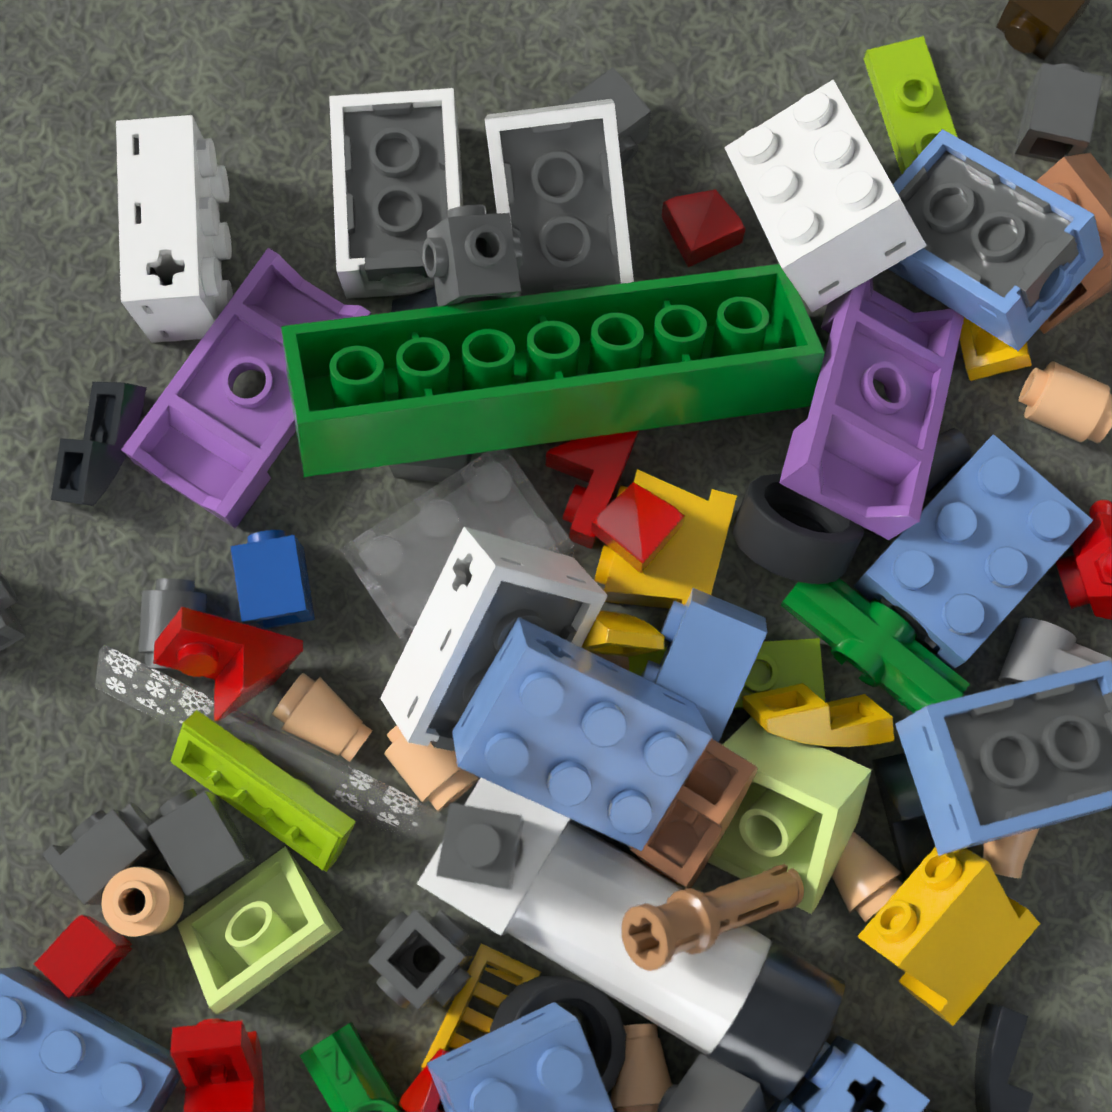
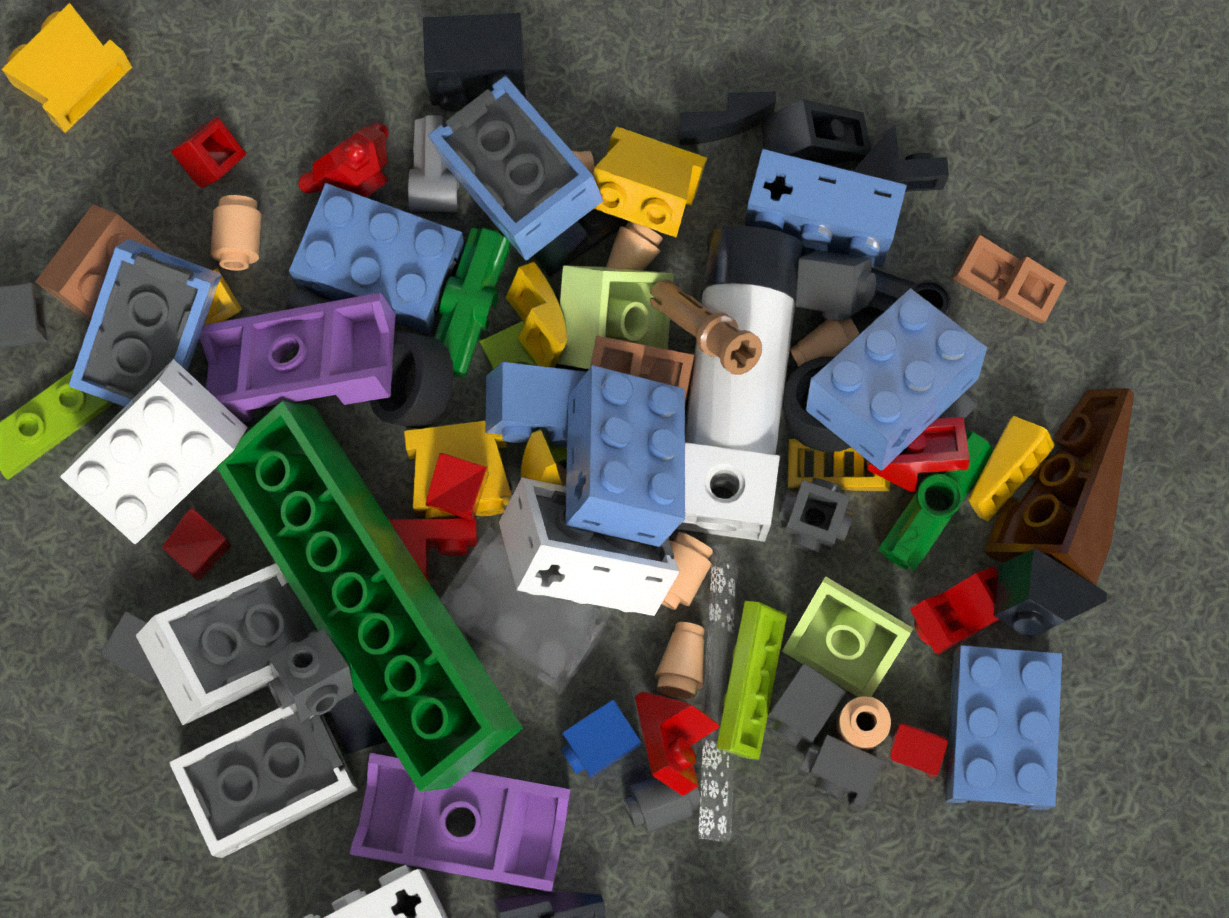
camera: 115 degrees left, 0 degrees up
(480, 846) = (730, 484): dark grey brick -> none

